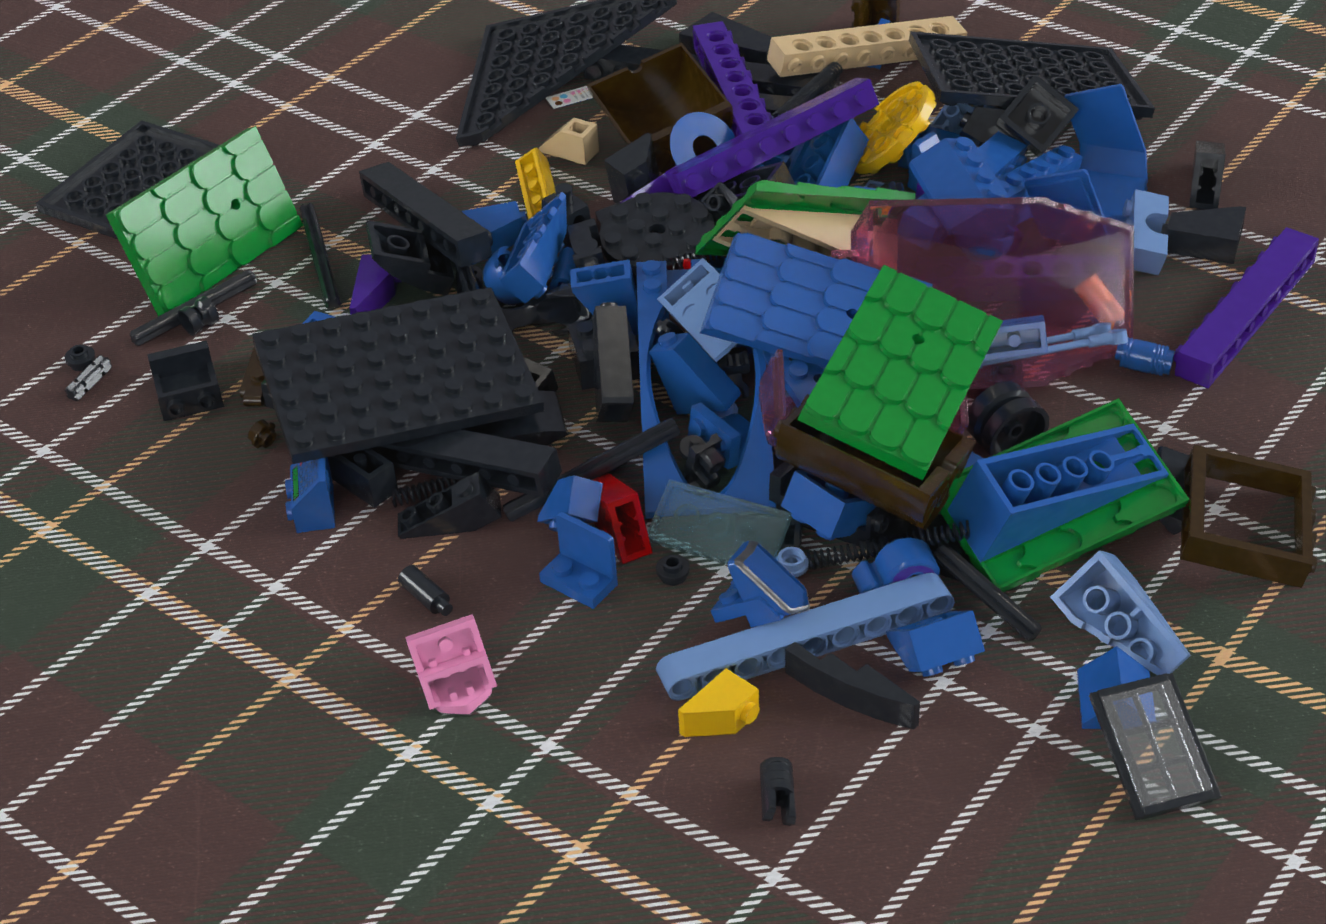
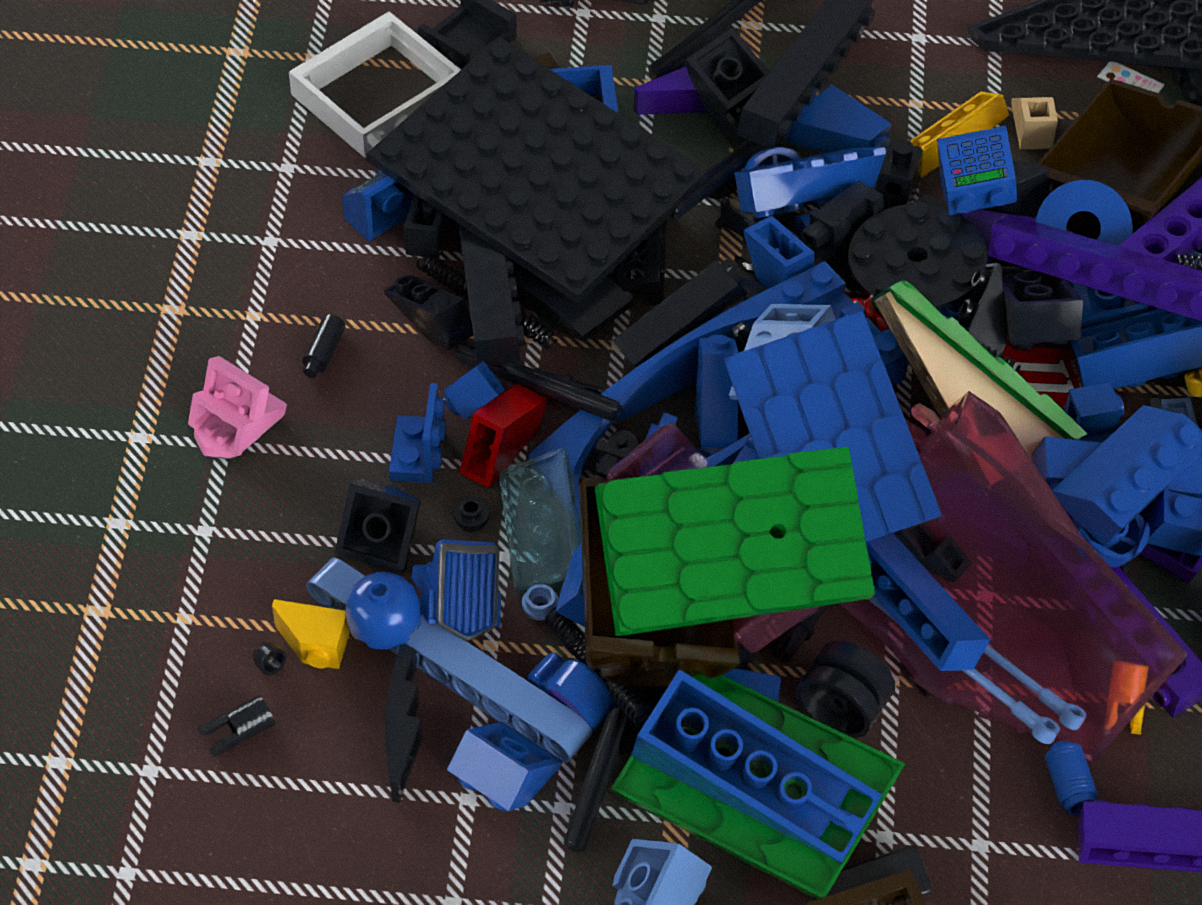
camera: 55 degrees right, 10 degrees up
(178, 416) = (352, 52): none -> white window
(632, 156) = (977, 170): none -> blue slope
(644, 622) = (377, 524): none -> black slope
(720, 746) = (275, 663): none -> black hinge
(748, 640) = (383, 610): none -> blue cylinder

